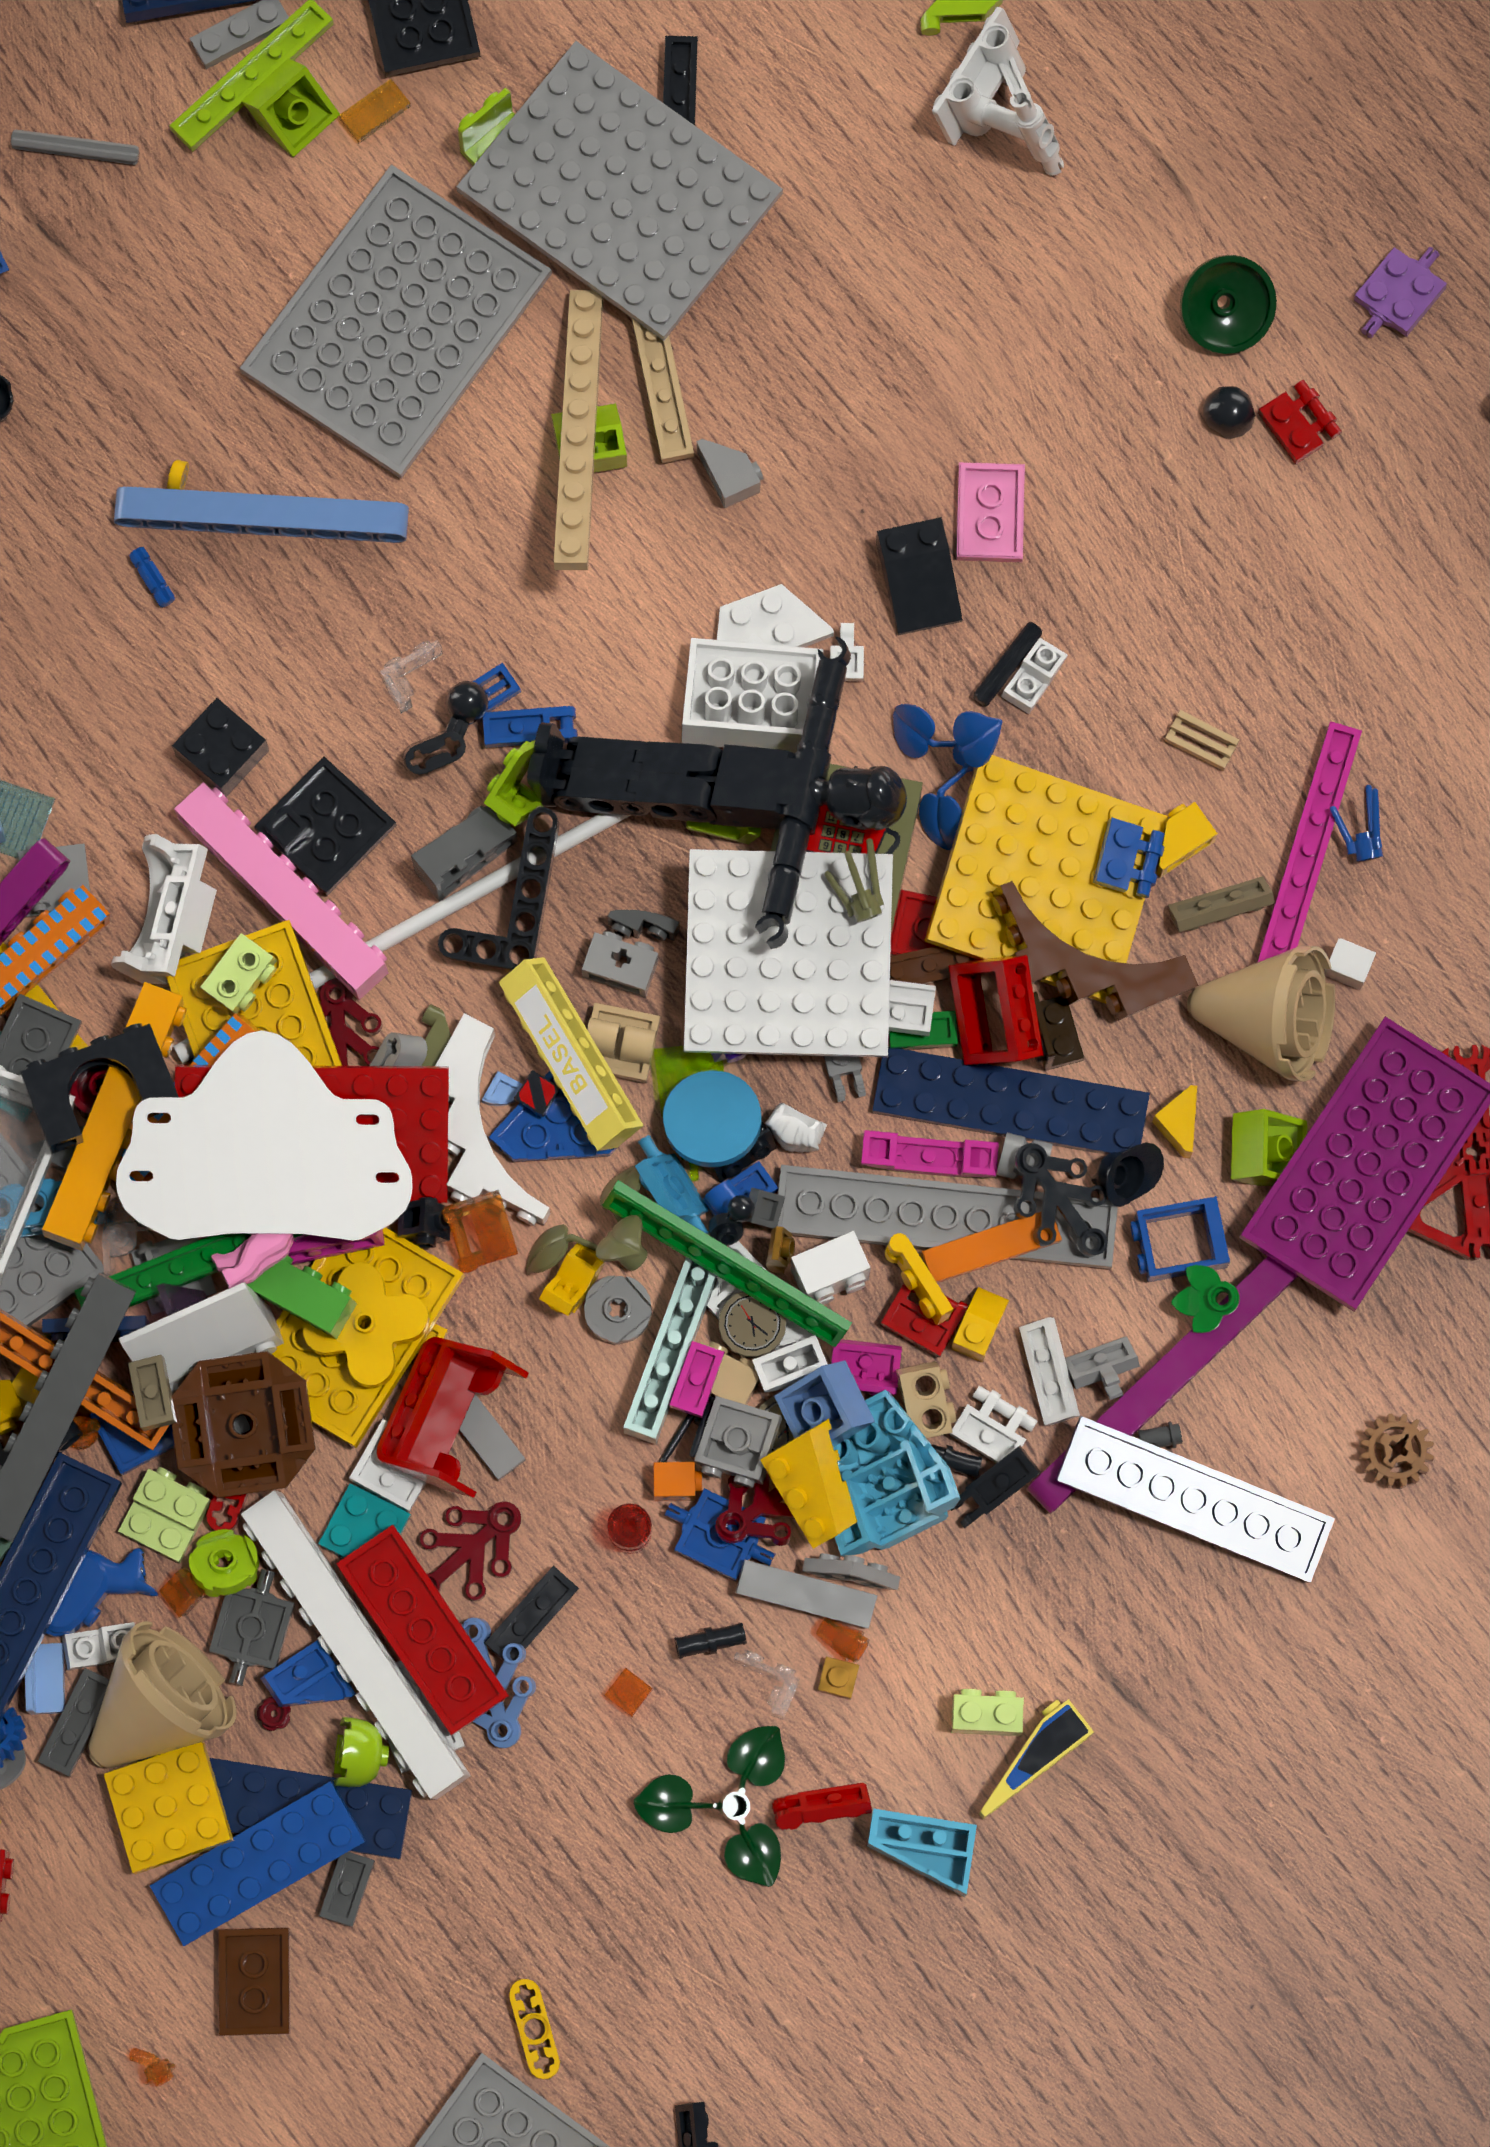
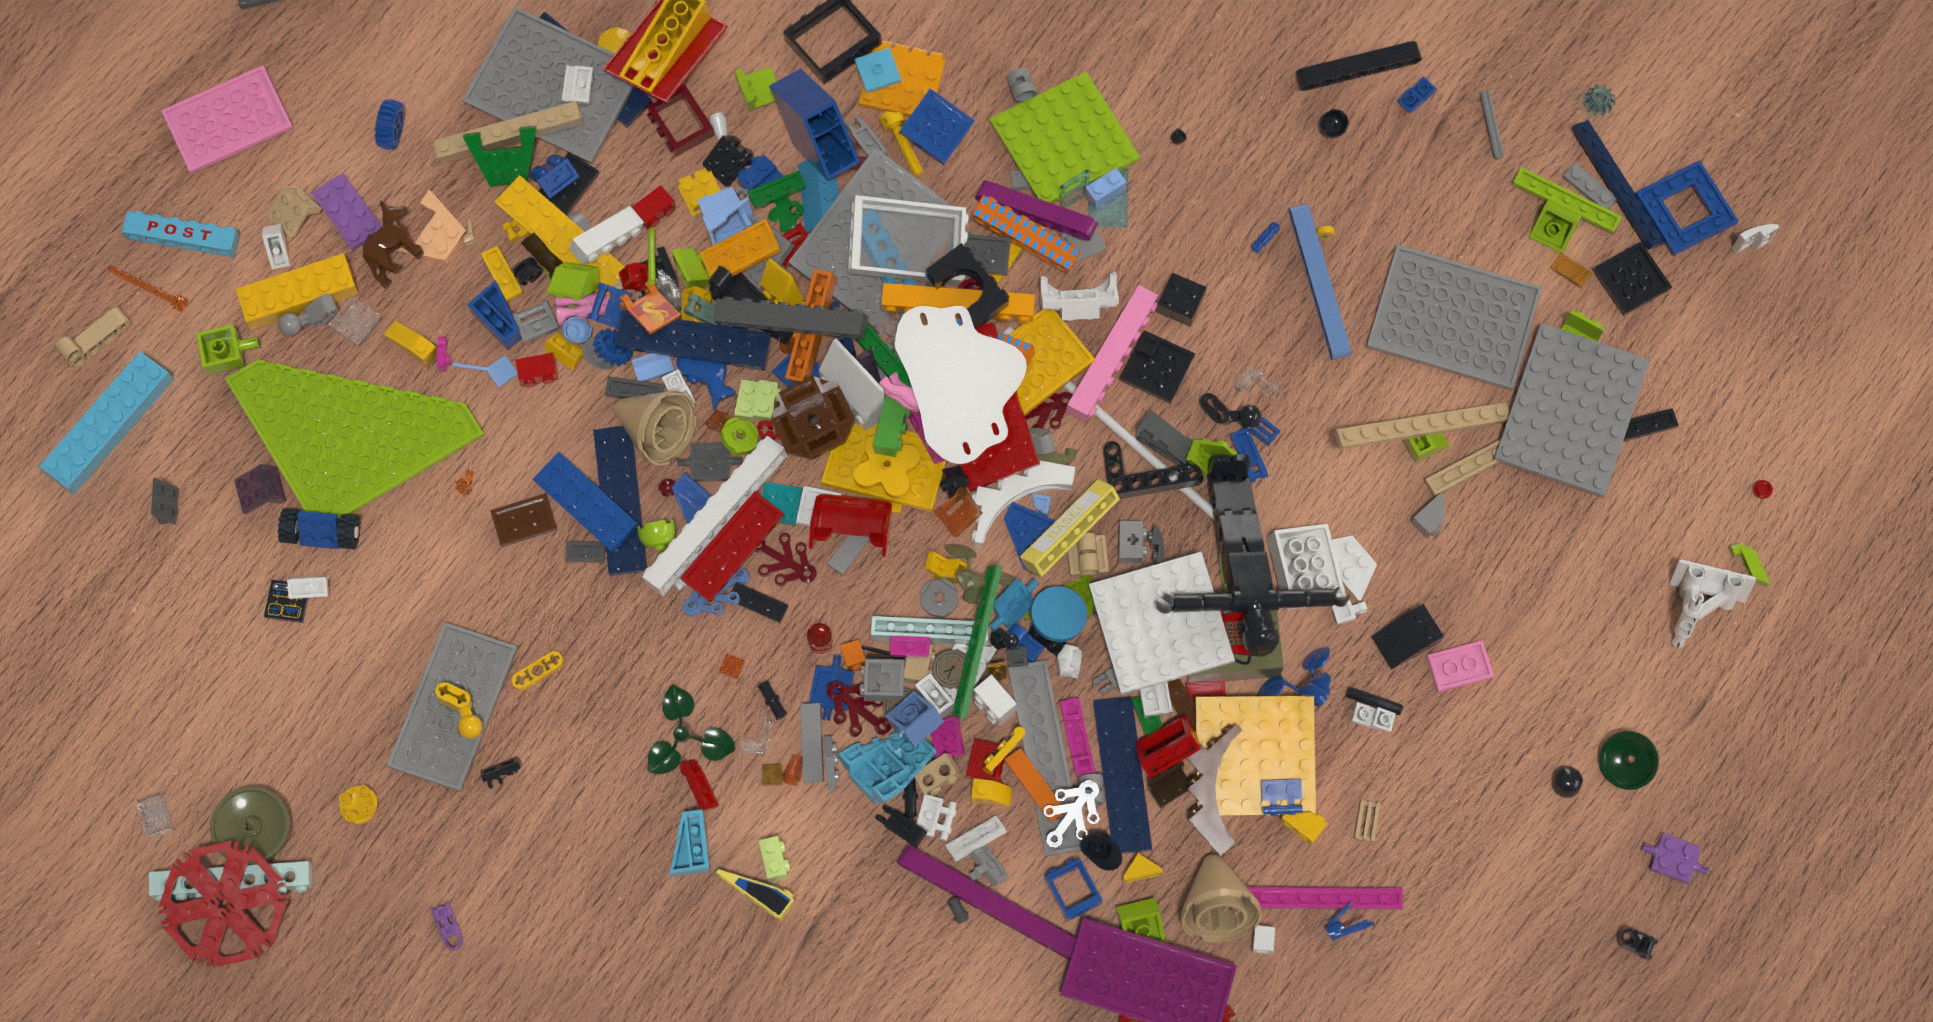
camera: 75 degrees right, 5 degrees down
(152, 1392) = (813, 365): dark tan plate -> none
(168, 1807) = (601, 447): yellow plate -> none
(240, 974) = (1055, 342): yellowish green brick -> none
(537, 1093) = (1043, 518): black tile -> none
(812, 1484) = (868, 723): yellow wedge -> none
(864, 904) = (1199, 650): olive plant -> none
(1194, 1499) = (926, 937): plate -> none
(1201, 1298) = (1040, 909): green plate -> none
(1221, 904) = (1274, 858): dark tan plate -> none
(1291, 427) = (1570, 820): red plate -> none

